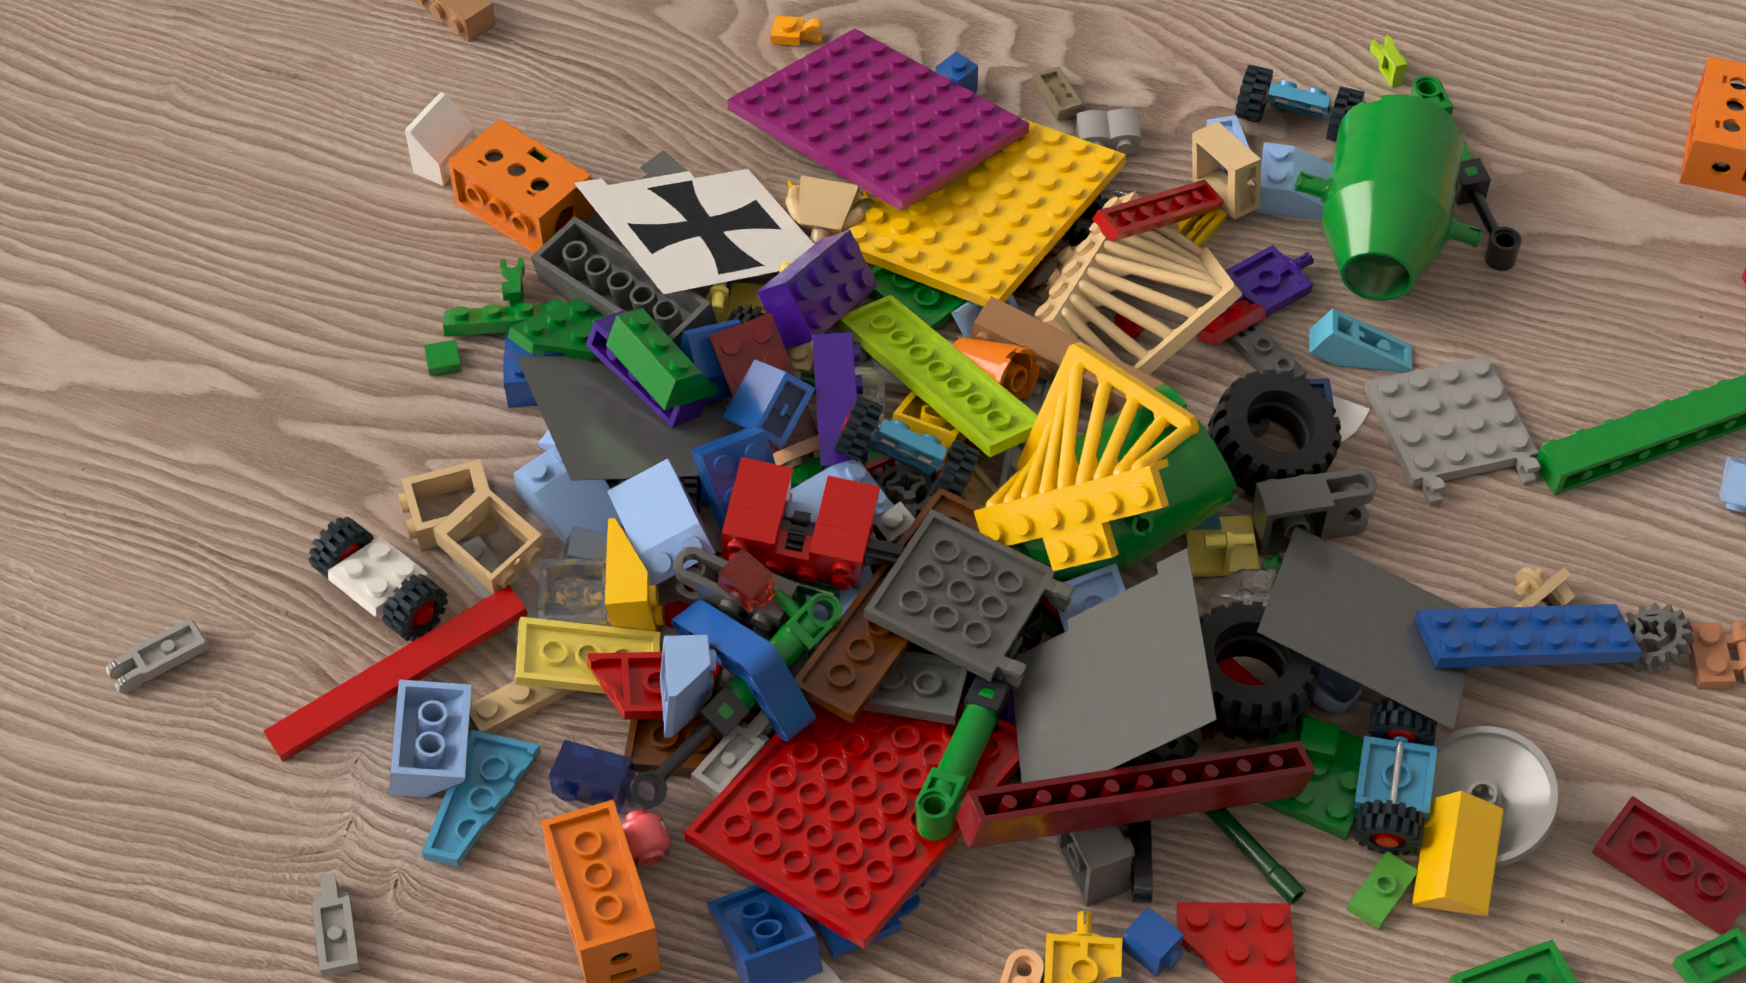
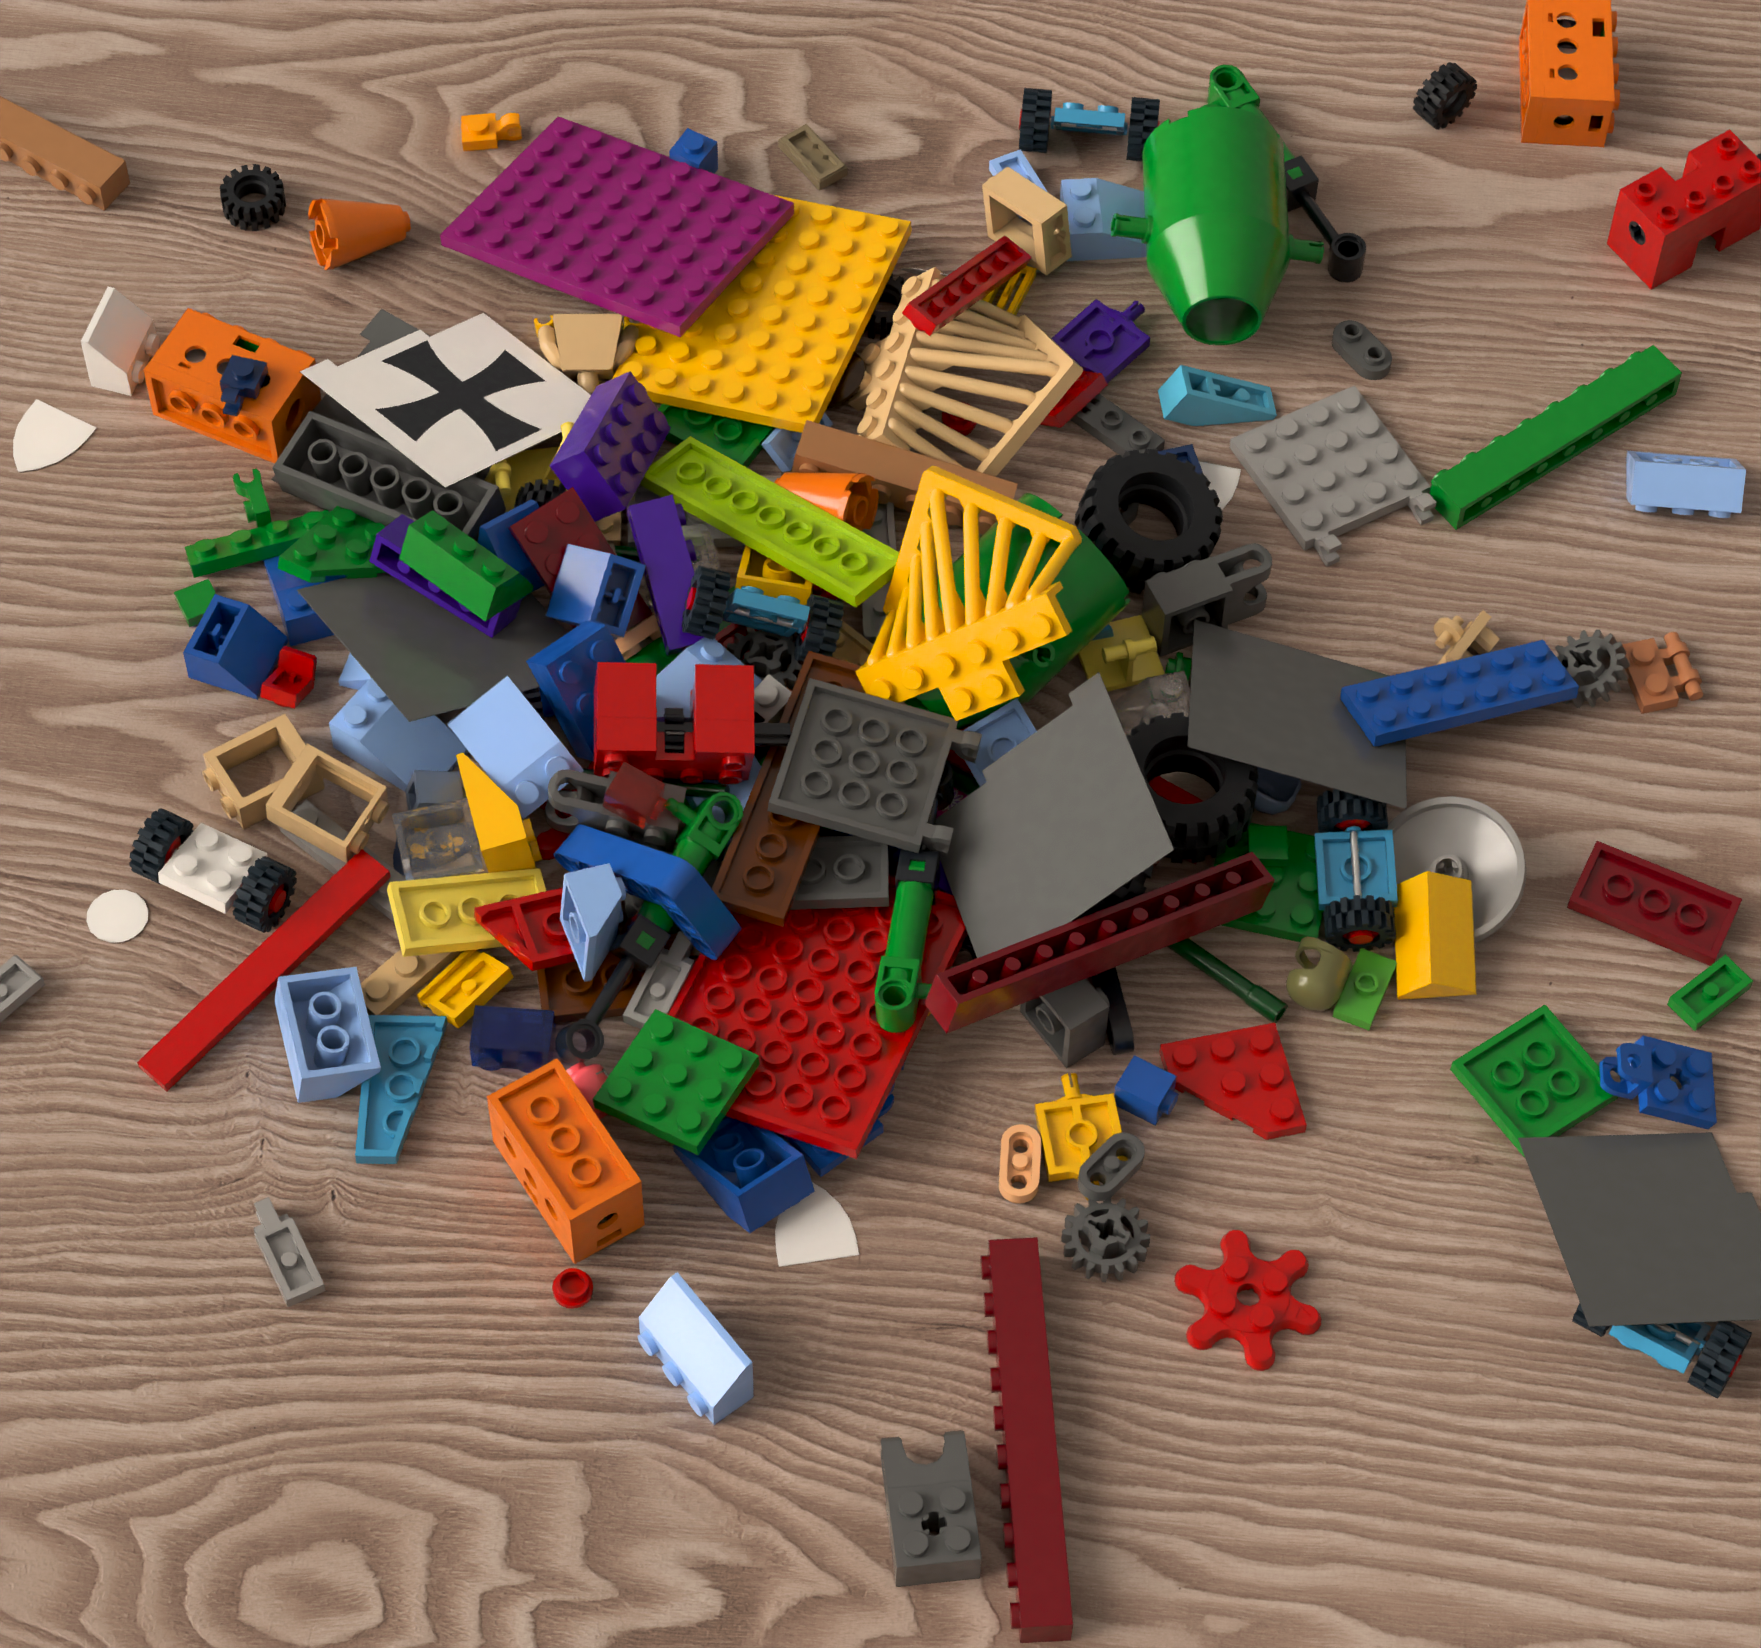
camera: 15 degrees left, 5 degrees up
(291, 603) = (117, 916): none -> white sticker
(364, 205) = (47, 436): none -> white sticker
(456, 397) = (233, 647): none -> blue slope
(498, 434) = (291, 679): none -> red bracket
(522, 181) = (240, 380): none -> dark blue plate
(564, 719) = (463, 984): none -> yellow plate
(586, 38) = (252, 212): none -> black tyre
(661, 86) = (354, 229): none -> orange cone
(719, 844) = (676, 1081): none -> green plate
(1112, 129) = (885, 193): light grey brick -> none
(1340, 876) = (1320, 985): none -> olive helmet
(1391, 62) = (1178, 53): lime plate -> none
(1495, 323) = (1358, 349): none -> dark grey plate
(1618, 130) = (1445, 95): none -> black tyre

